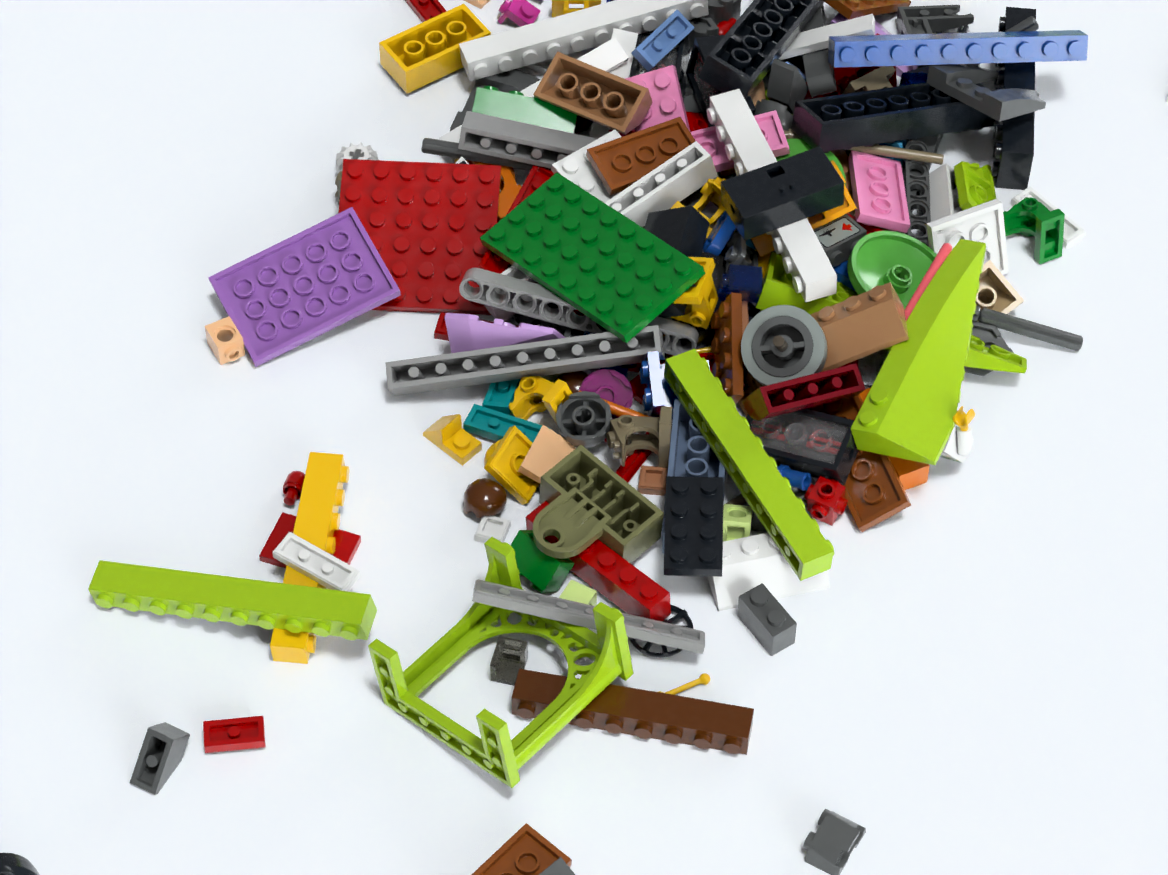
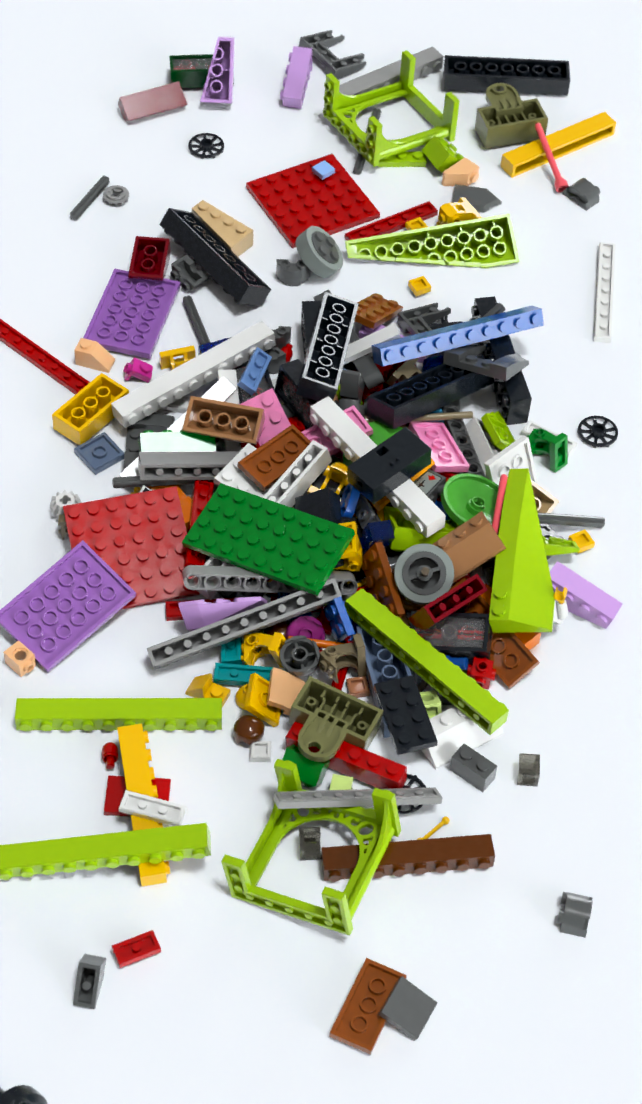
camera: 20 degrees left, 0 degrees up
(305, 432) = (111, 713): none -> lime brick
(428, 107) = (99, 453): none -> sand blue tile
(842, 641) = (528, 770): none -> clear smoke panel
(1006, 433) = (584, 597): none -> lavender wedge
(1039, 361) = (583, 540): none -> yellow plate
(1122, 222) = (597, 431): none -> black wheel

